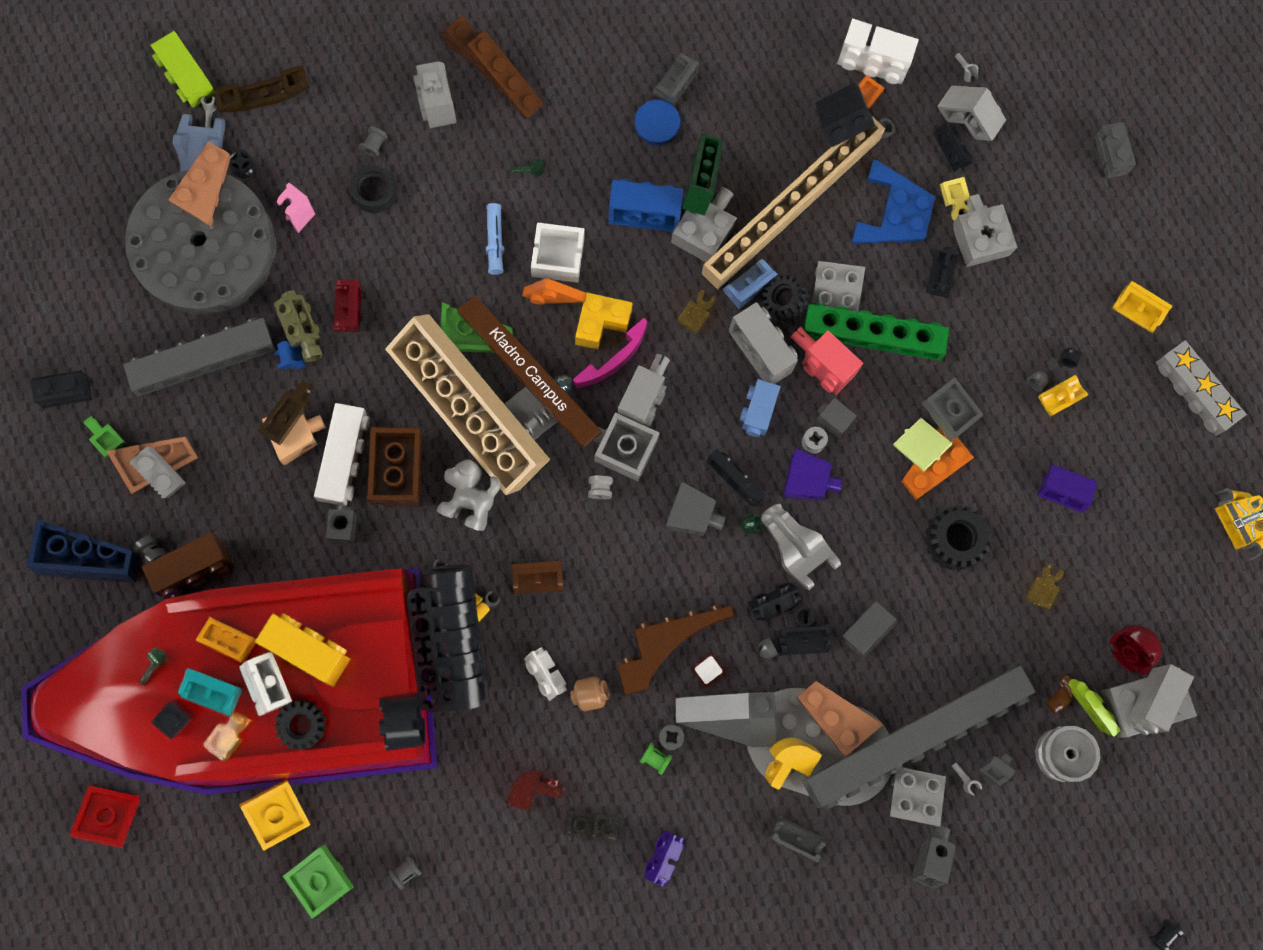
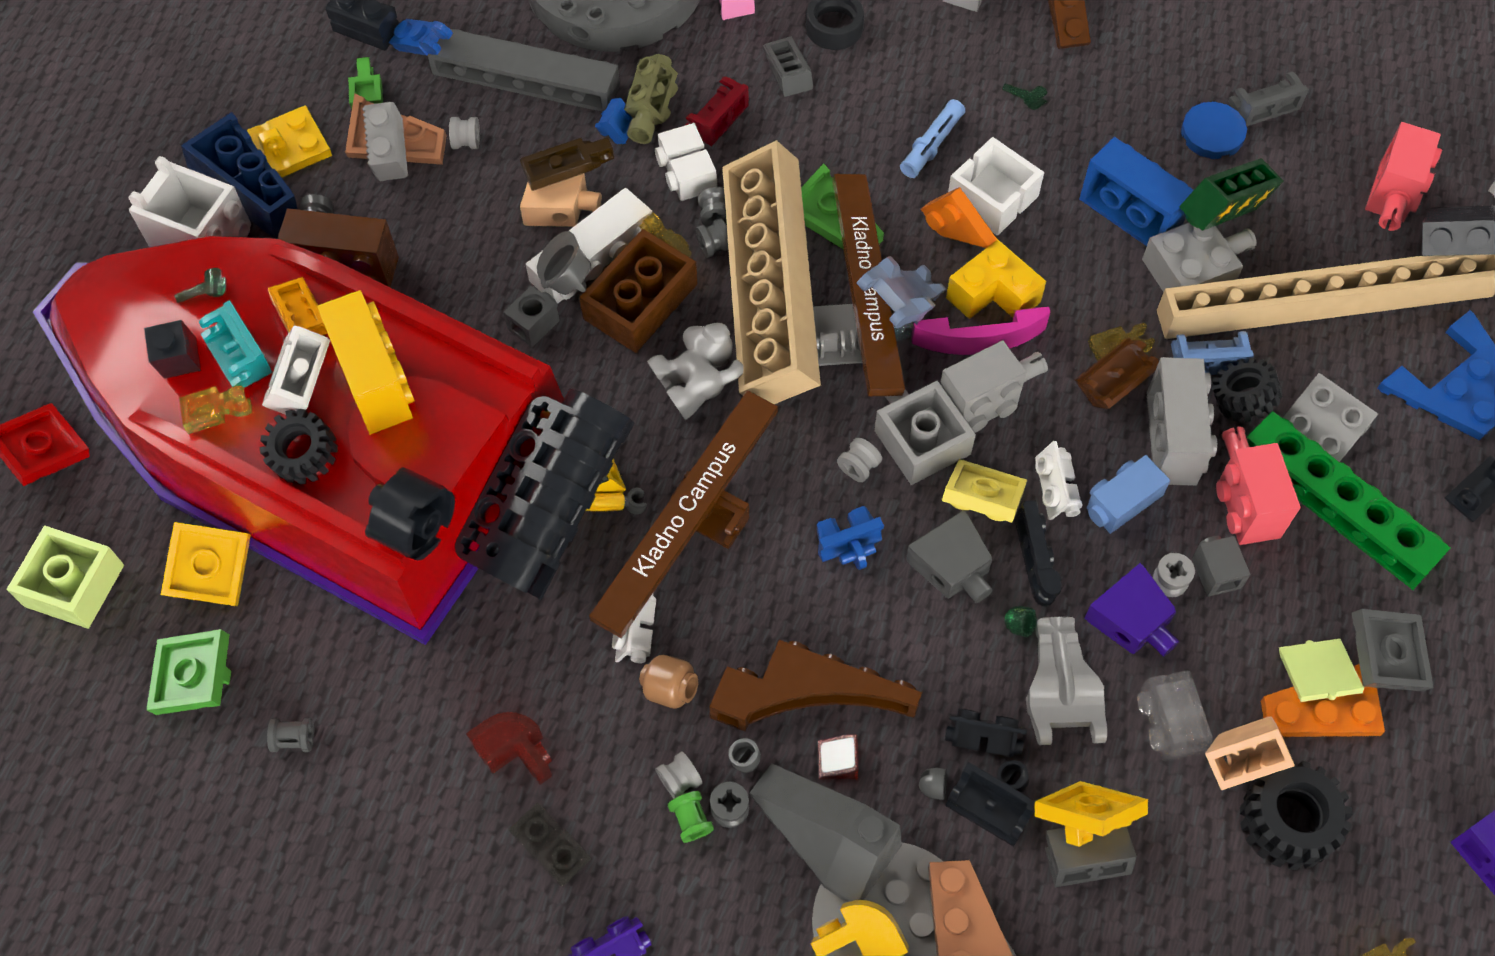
camera: 45 degrees right, 15 degrees down
(73, 608) = (186, 207): none -> white container
(85, 509) = (290, 141): none -> yellow hinge
(114, 380) = (419, 36): none -> blue hinge
(197, 428) = (464, 132): none -> light grey wheel
(198, 881) = (66, 576): none -> yellowish green brick
(341, 486) = (563, 265): none -> dark grey piece
(360, 359) = (687, 167): none -> white piece
(377, 252) = (794, 74): none -> dark grey slope
(389, 421) = (655, 227): none -> clear yellow plate
(396, 377) = (712, 205): none -> dark grey wheel
(411, 399) = (712, 237): none -> dark grey wheel
(530, 592) = (683, 515): none -> reddish brown tile
(558, 366) = (904, 291): none -> sand blue animal
(621, 547) = (851, 543): none -> blue hips
(633, 741) = (679, 775): none -> light grey wheel
(655, 705) = (740, 751): none -> dark grey hinge
(684, 460) = (984, 491): none -> light yellow plate
(709, 335) = (1117, 373): none -> reddish brown hinge
(723, 433) = (1054, 470): none -> white hinge
(788, 92) = (1404, 174): none -> coral brick
(859, 611) = (1090, 810): none -> yellow hinge
(866, 524) = (1175, 716): none -> clear brick
(918, 523) = (1250, 752): none -> light nougat torso

